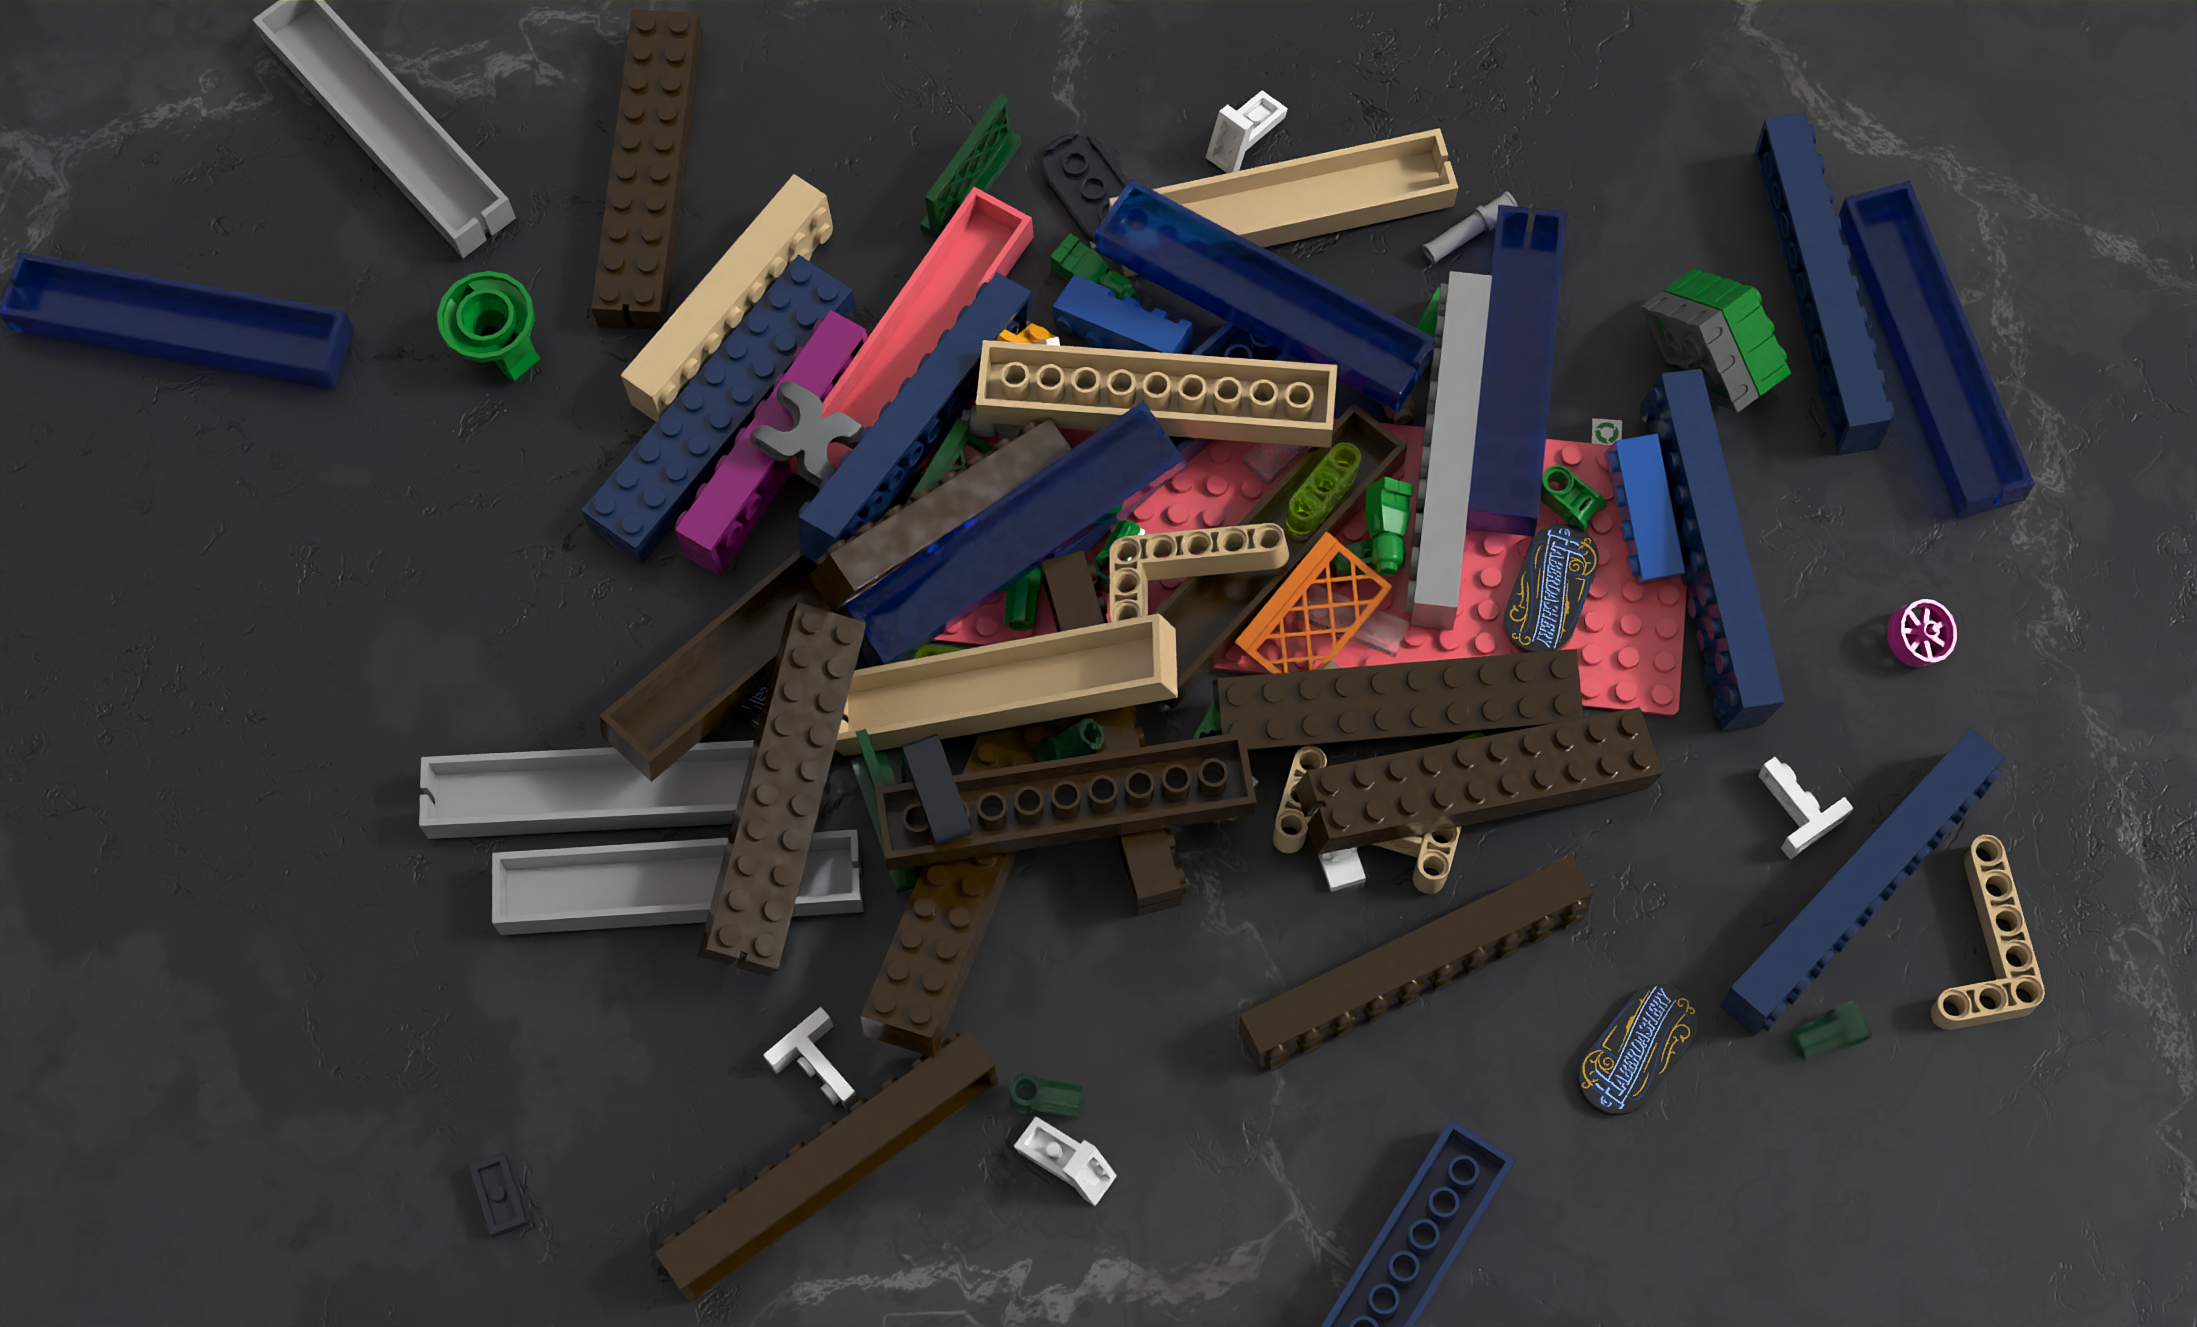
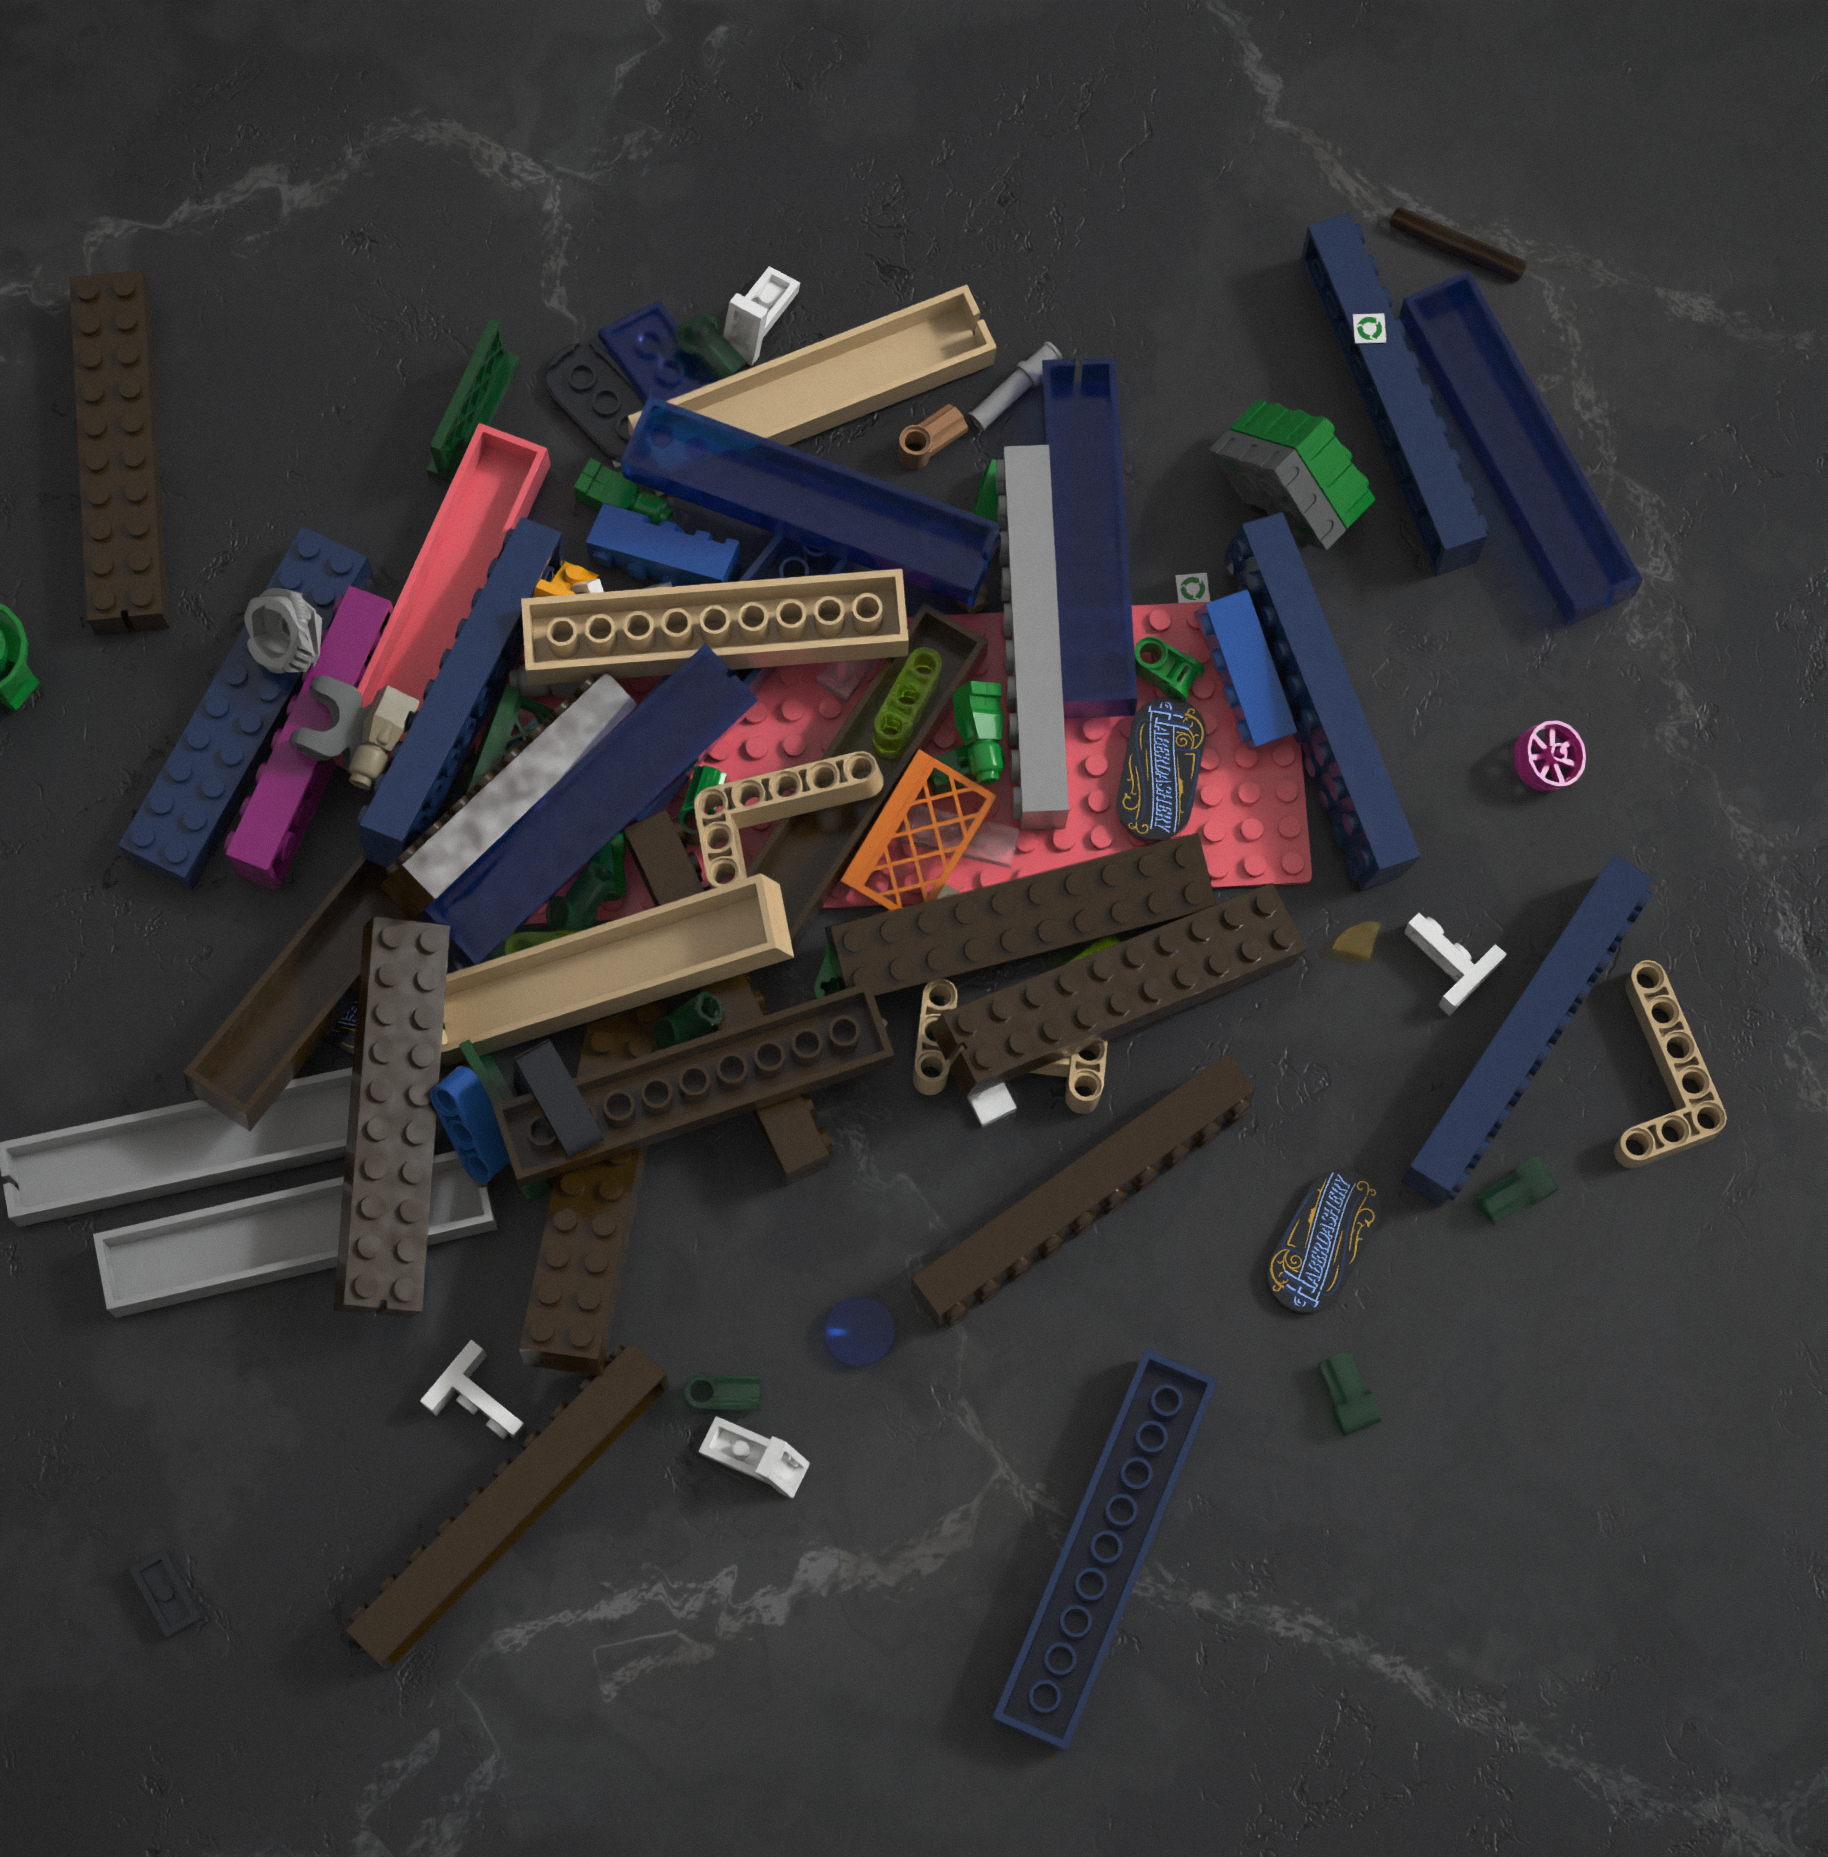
camera: 15 degrees left, 5 degrees up
(763, 340) = (283, 631): none -> light grey helmet
(786, 227) = (213, 618): tan brick -> none
(833, 441) = (380, 734): none -> dark tan piece
(853, 805) = (470, 1123): none -> blue beam
(993, 622) = (579, 905): none -> clear green piece
(1144, 149) = (650, 355): none -> clear blue tile
(1183, 1060) = (859, 1331): none -> clear blue piece
(1198, 155) = (713, 349): none -> clear green piece
(1385, 259) = (932, 435): none -> medium nougat piece
(1642, 1206) = (1352, 1403): none -> clear green piece
(1712, 775) = (1357, 940): none -> clear yellow tile
(1808, 217) = (1369, 328): none -> white sticker
(1903, 160) = (1458, 243): none -> dark brown axle

